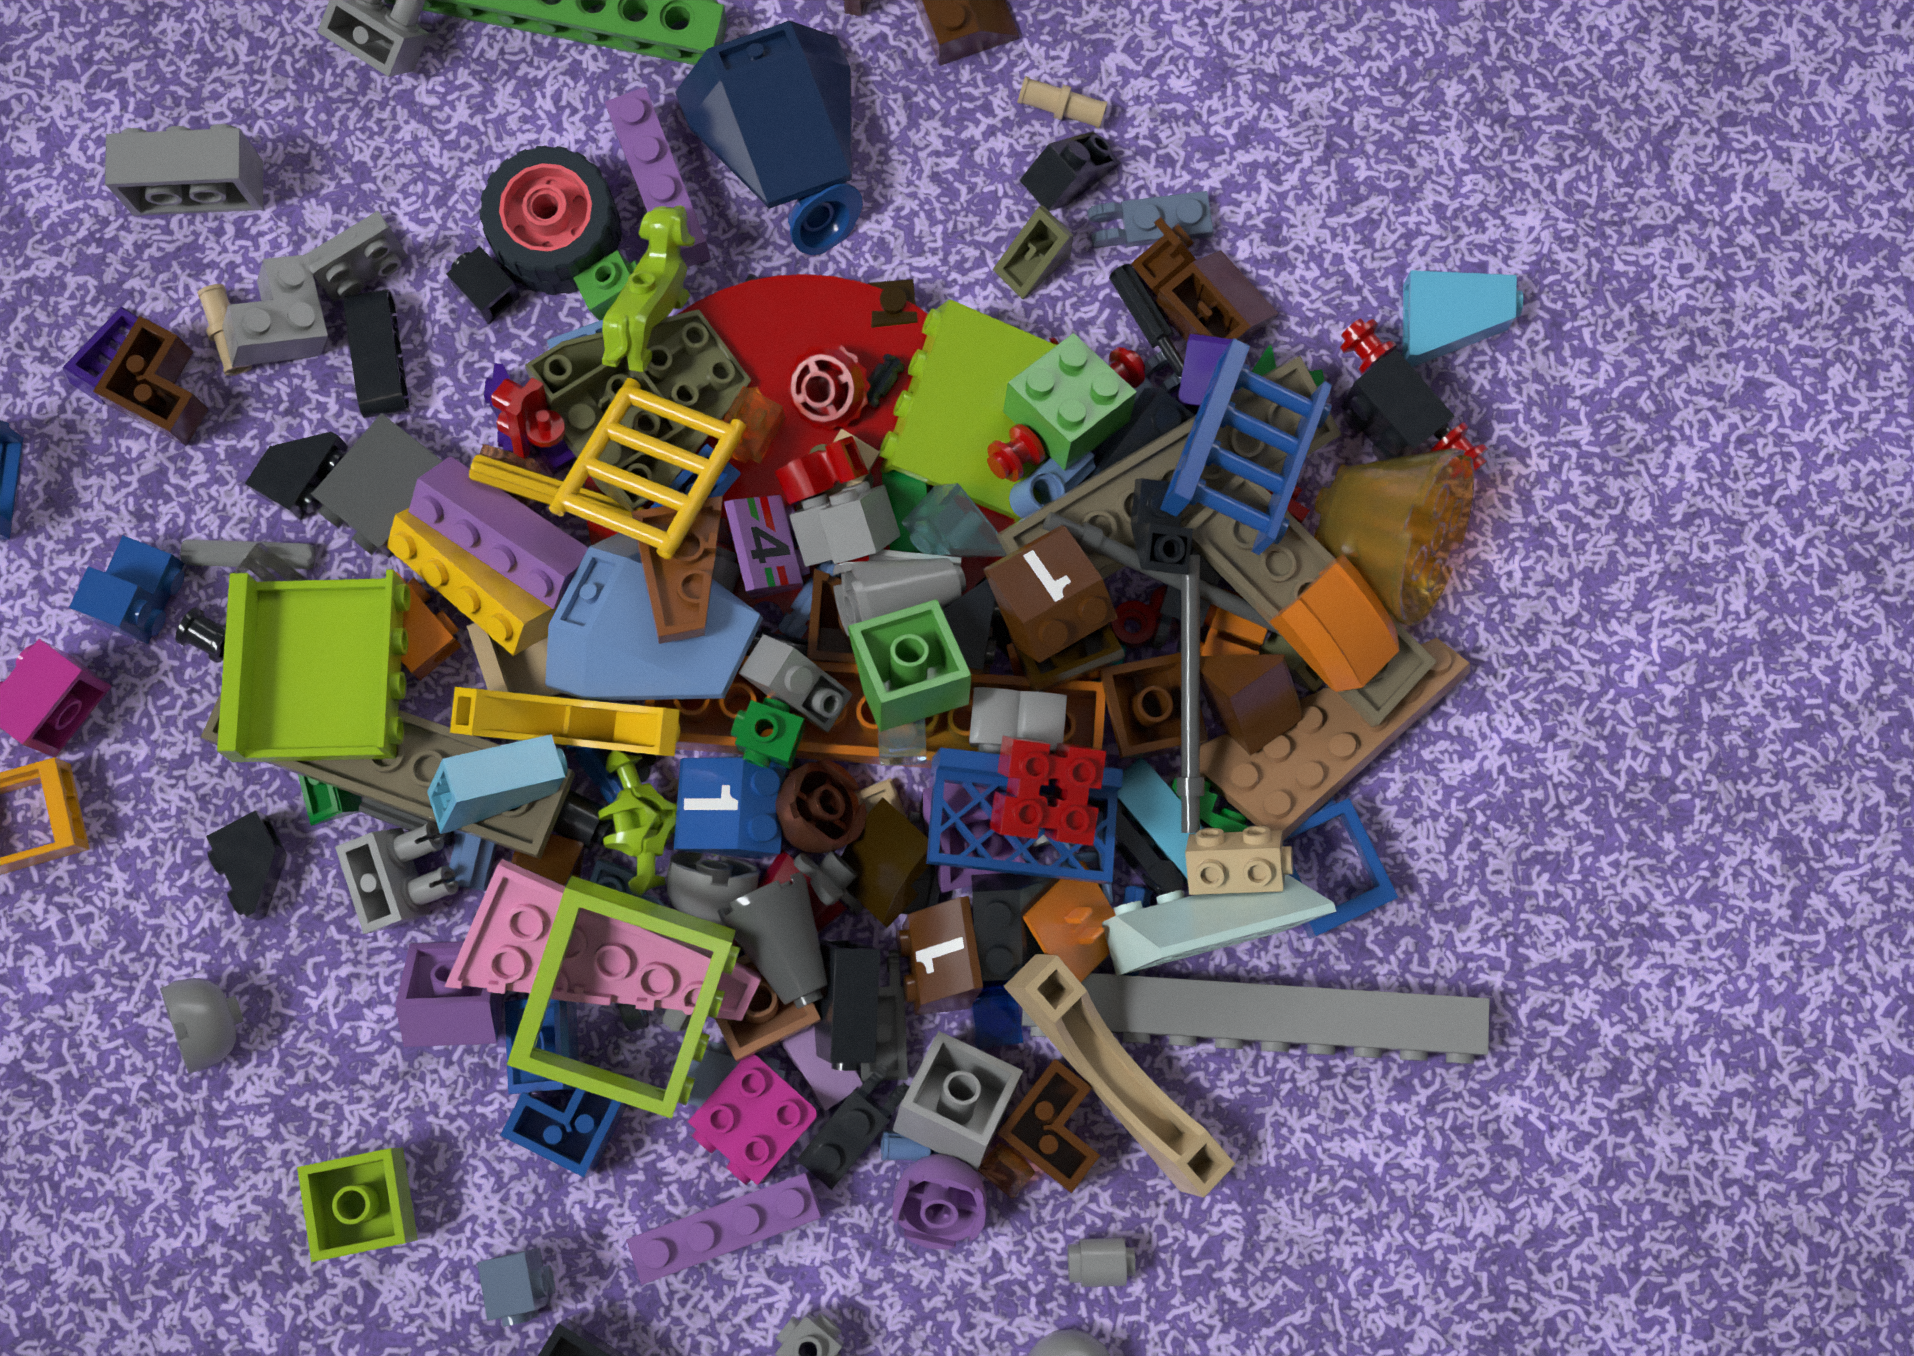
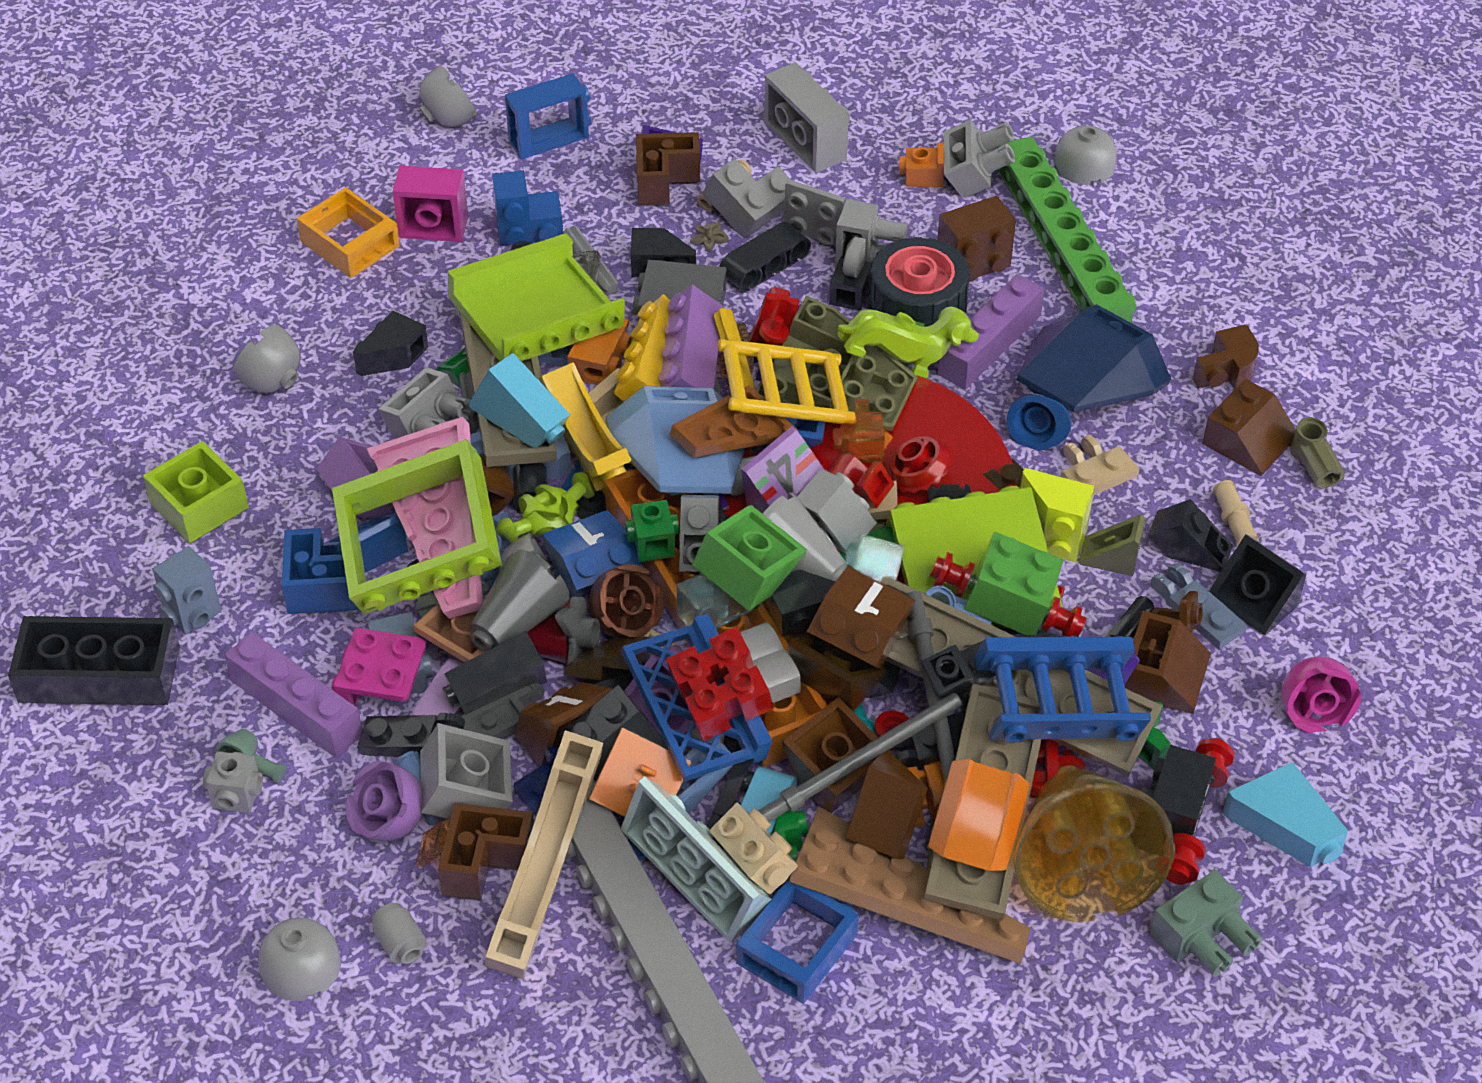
camera: 60 degrees right, 30 degrees down
(293, 394) = (709, 235): none -> dark tan plant
(356, 90) = (923, 166): none -> orange brick
(433, 228) = (863, 221): none -> light grey brick
(474, 266) = (854, 257): none -> light grey tile
(518, 104) = (981, 234): none -> reddish brown brick
(763, 1318) = (247, 743): none -> sand green bar
(918, 198) = (1102, 469): none -> tan hinge
(976, 278) = (1062, 510): none -> neon yellow slope
(1172, 149) = (1259, 585): none -> black slope
(1337, 178) = (1322, 688): none -> dark pink cylinder
(1518, 475) = (1197, 916): none -> sand green brick

